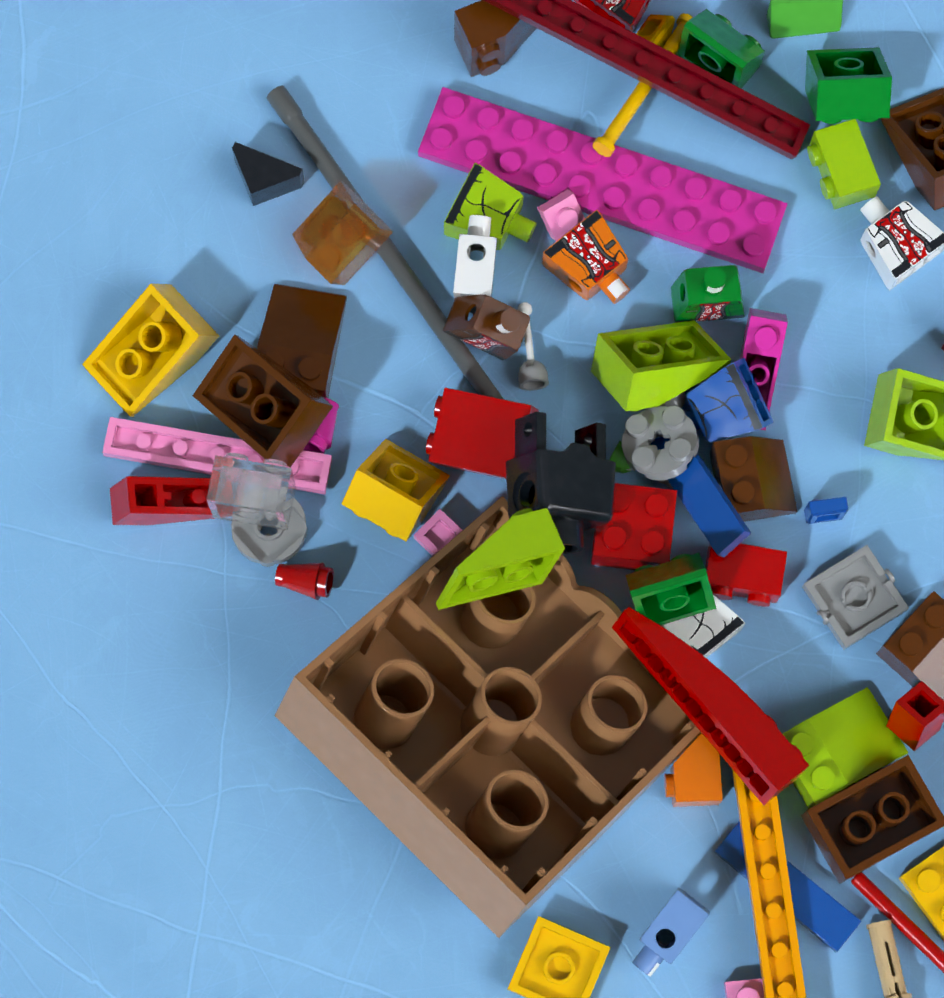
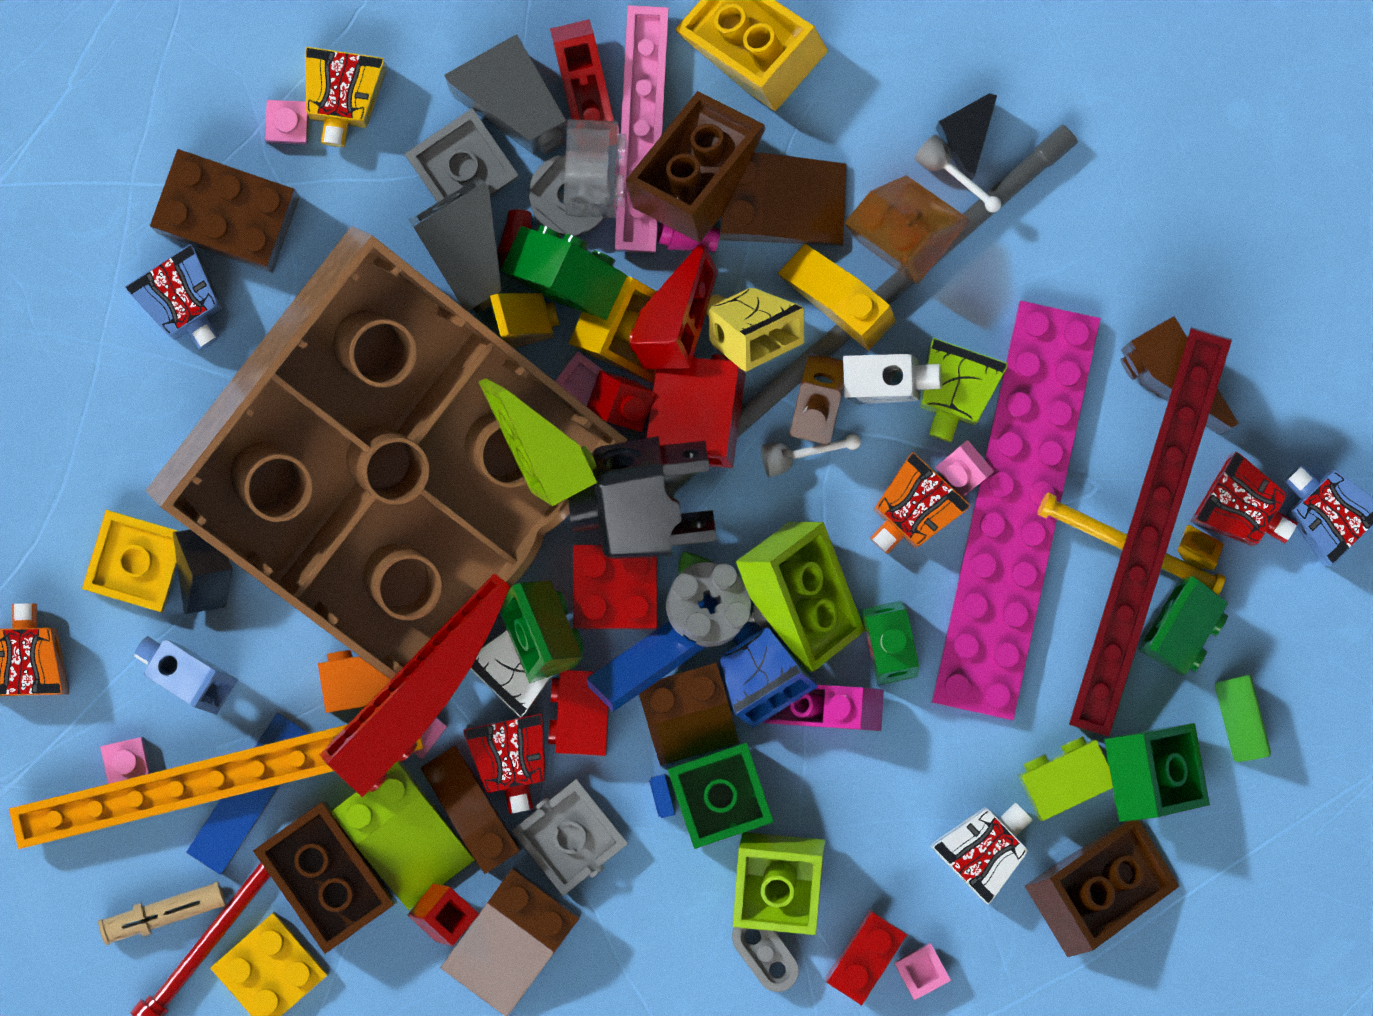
camera: 85 degrees right, 10 degrees up
(141, 722) = (341, 91): none -> torso
(162, 778) = (286, 122): none -> bright pink plate
(173, 560) = (510, 96): none -> dark grey slope
(227, 620) = (459, 156): none -> light grey plate
(238, 842) = (225, 210): none -> reddish brown brick
(281, 204) = (936, 155): none -> hinge
(300, 617) = (463, 243): none -> dark grey slope
(315, 895) = (180, 297): none -> torso
(341, 530) = (564, 270): none -> green brick
(378, 575) = (524, 317): none -> yellow slope
(393, 300) = (839, 296): none -> yellow slope
(396, 442) = (675, 314): none -> red slope
(413, 374) = (754, 326): none -> light yellow torso
(465, 498) = (620, 401): none -> red brick
(575, 902) = (202, 573): none -> black slope
(778, 640) = (510, 758): none -> torso
(823, 682) = (470, 810): none -> reddish brown slope
(832, 456) = (720, 795): none -> green brick

